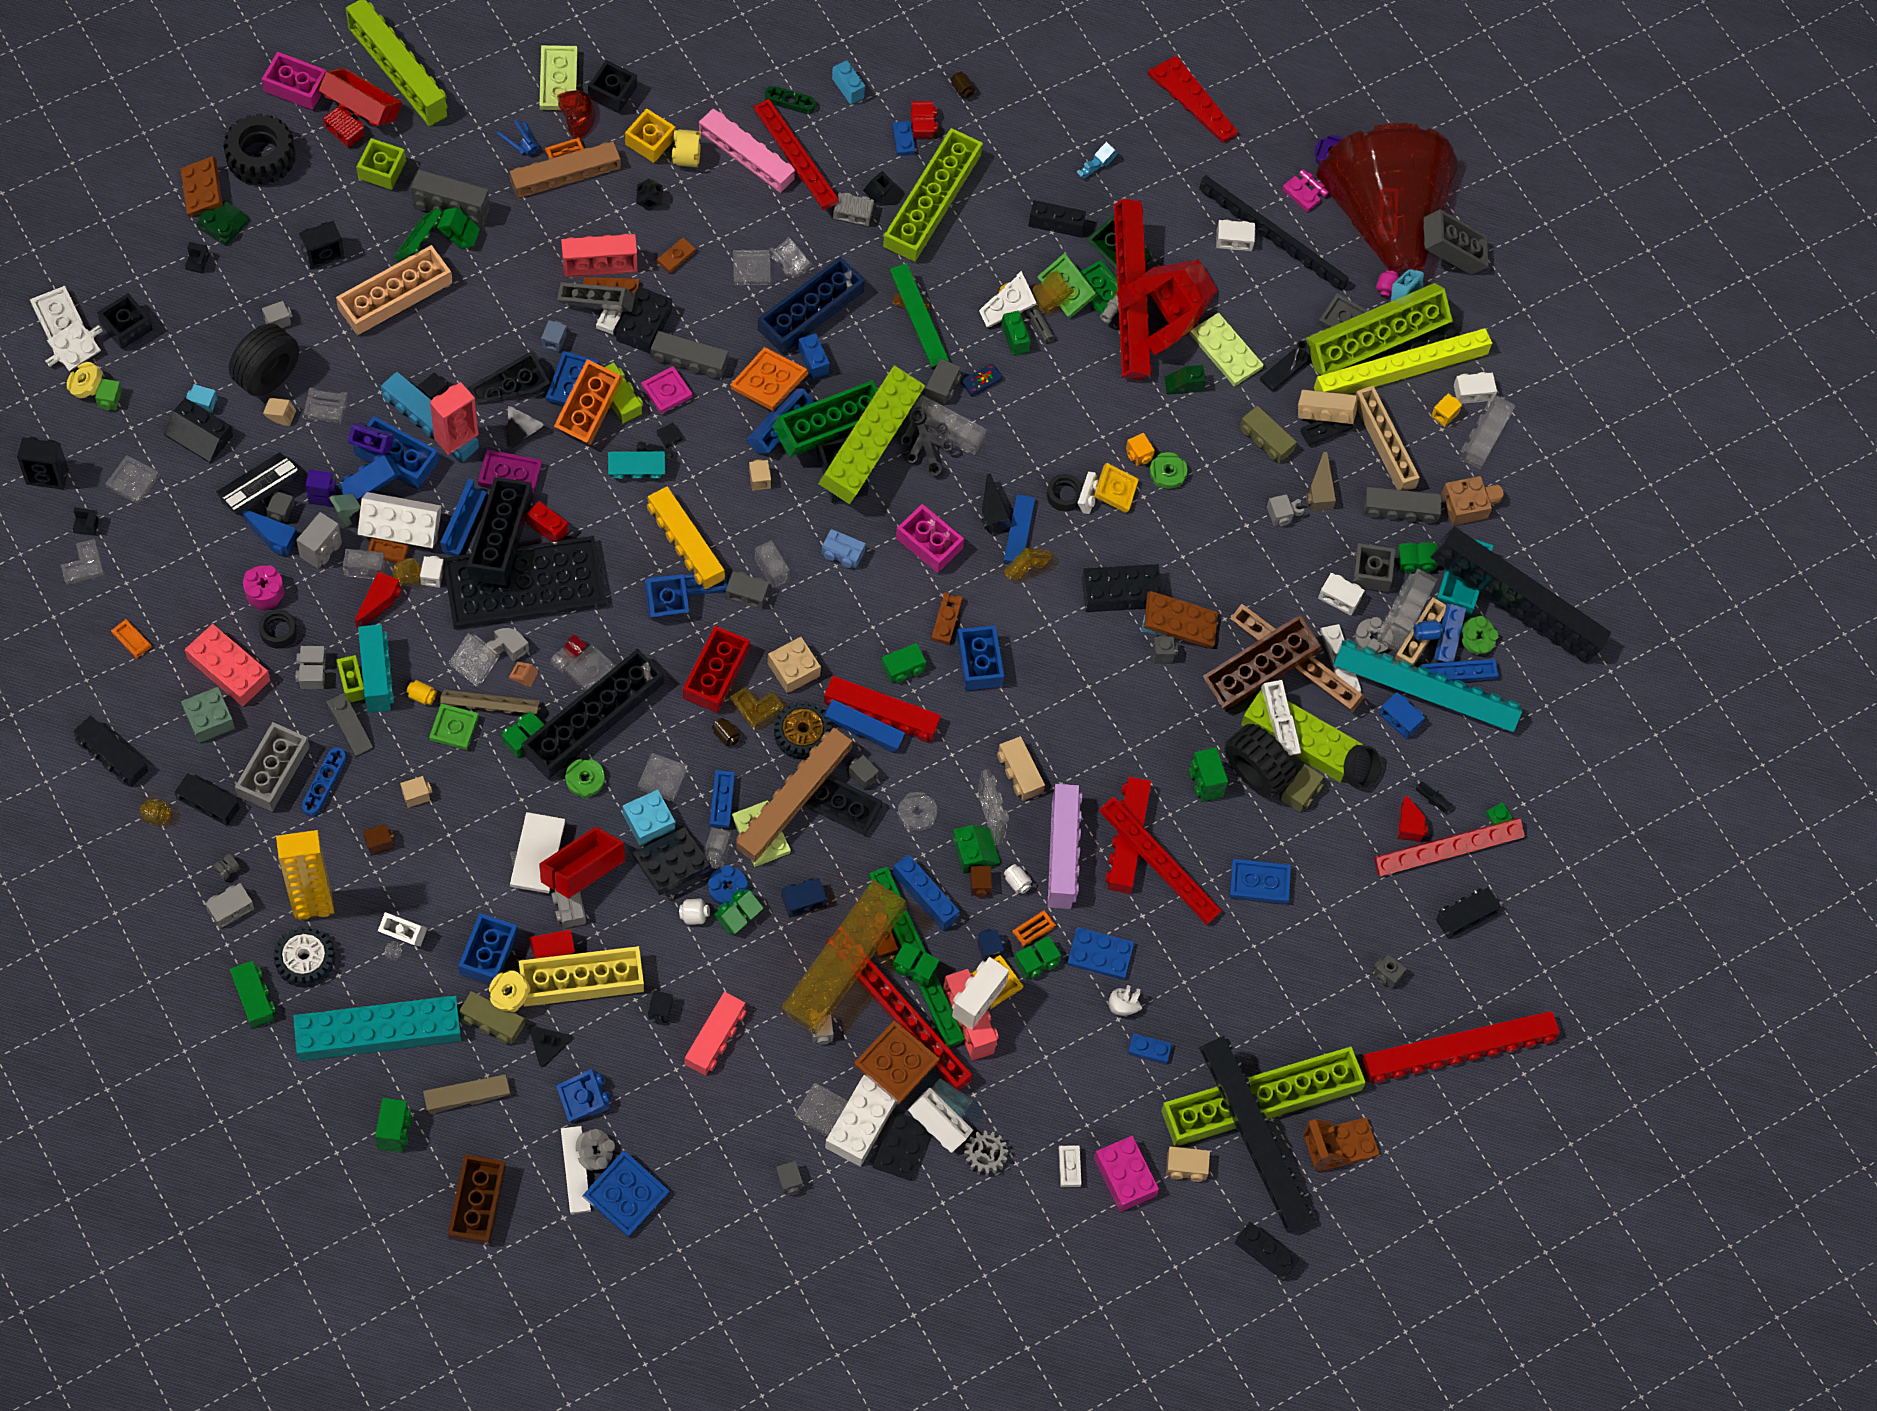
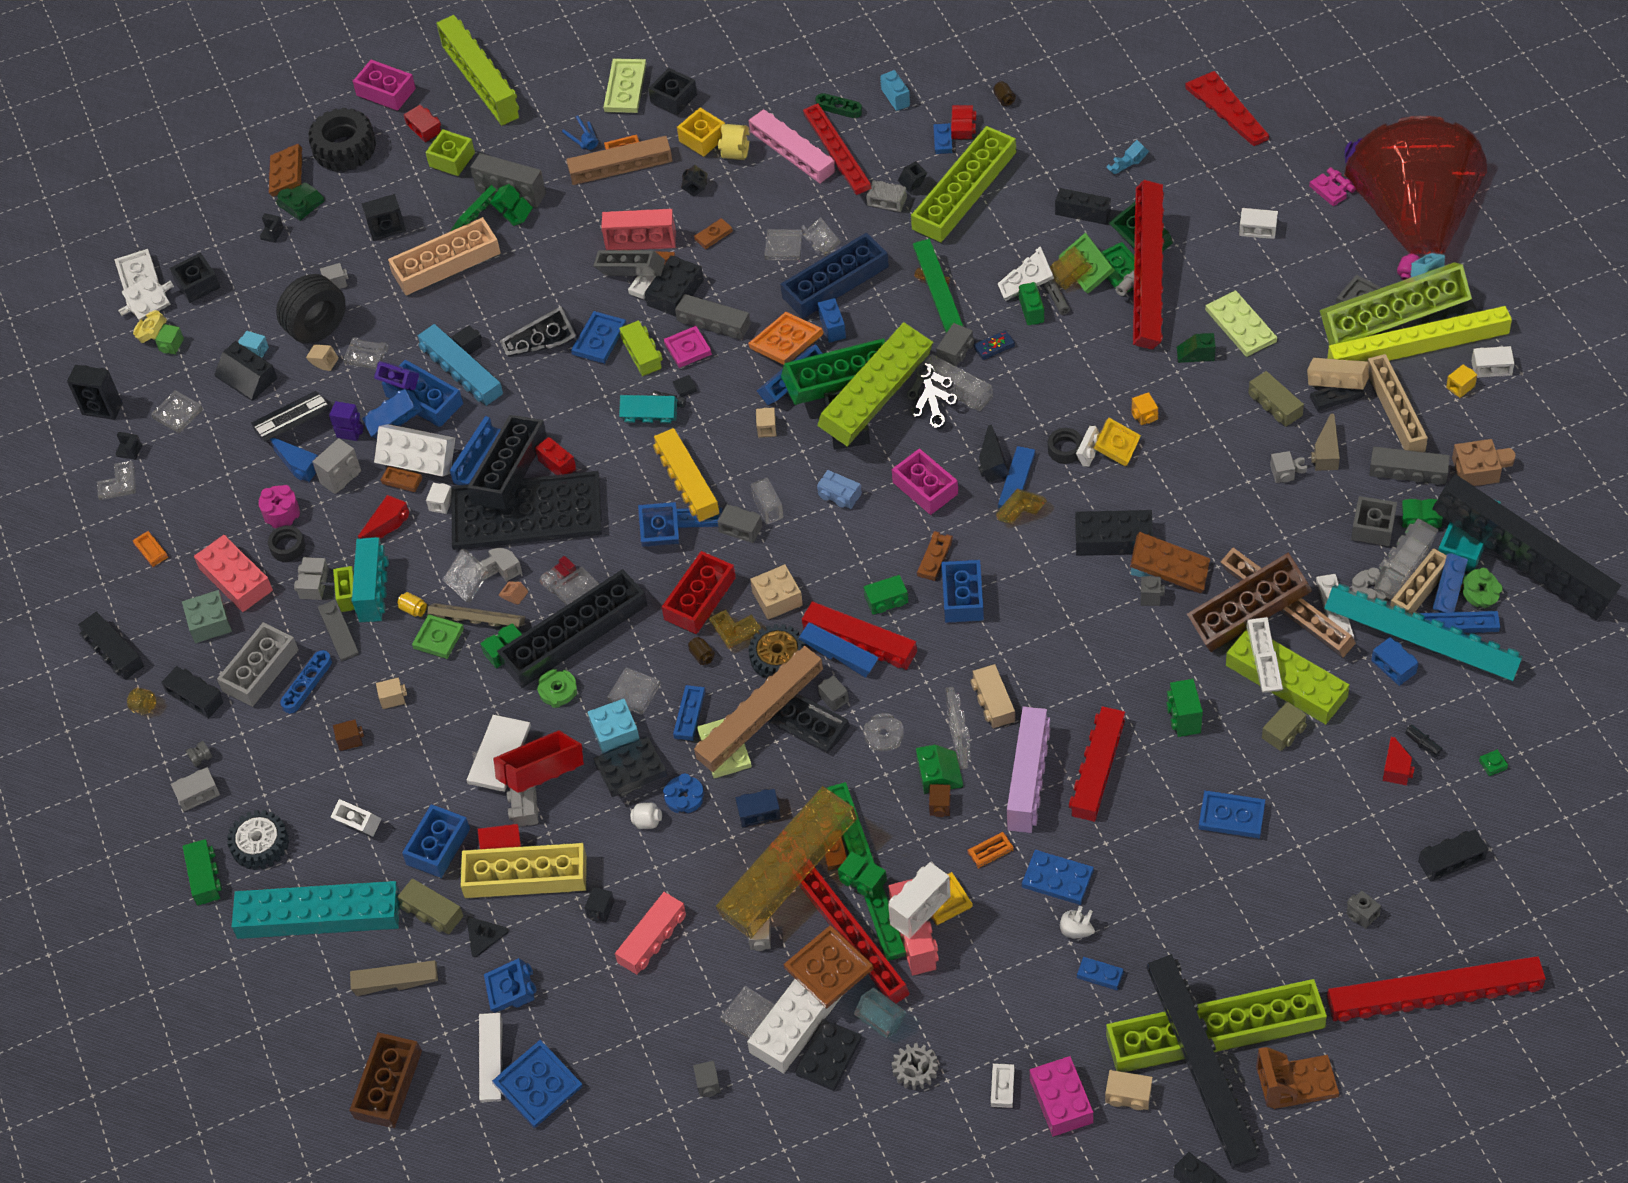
camera: 20 degrees right, 10 degrees down
(280, 507) = (308, 437): dark grey brick -> none
(305, 874) = (258, 751): yellow brick -> none
(345, 506) = (365, 438): sand green slope -> none
(360, 96) = (440, 97): red piece -> none
(363, 563) = (375, 488): clear brick -> none
(392, 951) = (344, 838): clear plate -> none
(392, 1125) = (313, 1001): green brick -> none
(407, 571) = (415, 496): clear yellow head -> none
(454, 418) = (474, 357): coral brick -> none
(509, 467) = (529, 408): magenta plate -> none
(516, 998) = (457, 878): light yellow plate -> none
(520, 426) = (543, 374): piece -> none
(553, 336) = (587, 298): sand blue brick -> none
(578, 111) = (638, 111): clear red brick -> none
(588, 402) = (608, 351): orange brick -> none
(604, 1149) = (521, 1034): light grey plate -> none
(718, 847) = (676, 755): clear brick -> none
(733, 914) = (687, 818): green piece -> none
(925, 892) = (882, 808): blue brick -> none
(940, 1120) = (869, 1028): white brick -> none
(990, 944) = (944, 859): dark blue brick -> none
(1017, 879) = (978, 800): white brick -> none
(1042, 957) = (984, 881): green piece -> none
(1160, 860) = (1126, 787): red plate -> none
(1163, 479) = (1171, 438): bright green plate -> none
(1180, 293) = (1196, 269): red wedge -> none
(1260, 760) = (1238, 693): black tyre -> none
(1274, 233) = (1298, 222): black plate -> none
(1286, 367) = (1301, 339): black piece -> none
(1341, 593) = (1339, 545): white brick -> none
(1374, 769) = (1332, 706): black tyre -> none
(1427, 630) = (1425, 577): blue brick -> none
(1449, 846) = (1437, 789): plate -> none
(1455, 242) = (1478, 227): dark grey brick -> none
(1488, 432) = (1503, 401): clear brick -> none

